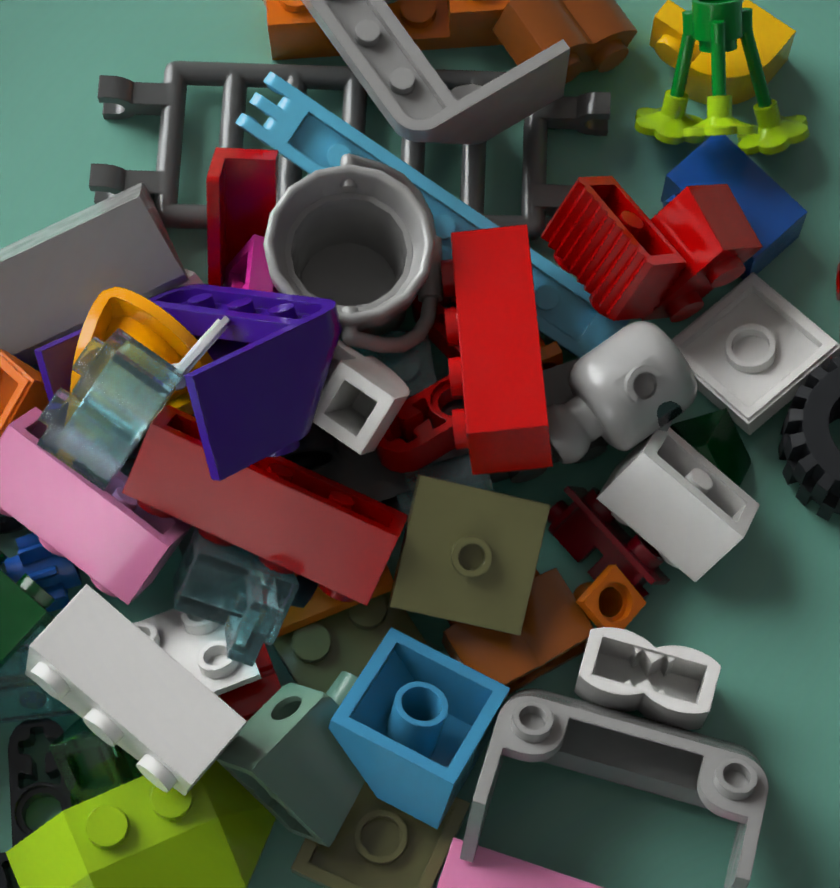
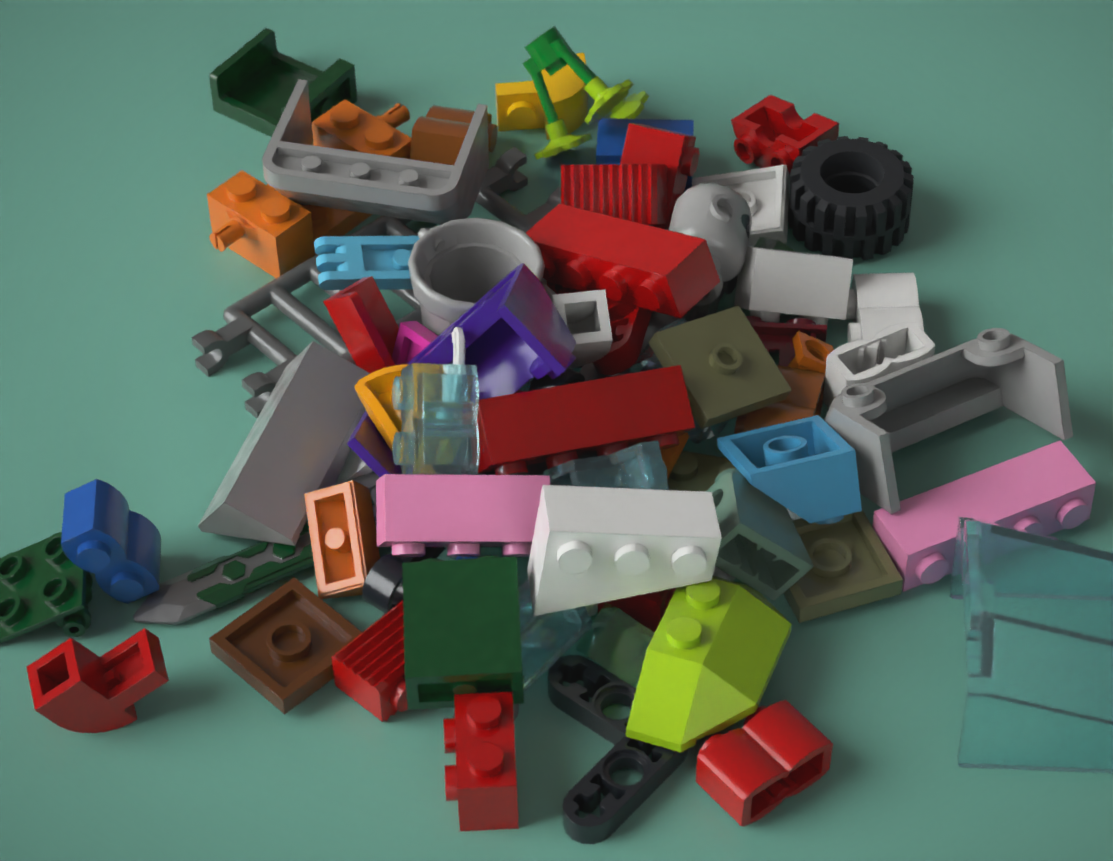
camera: 45 degrees left, 25 degrees down
(741, 611) = (881, 302): none -> white brick

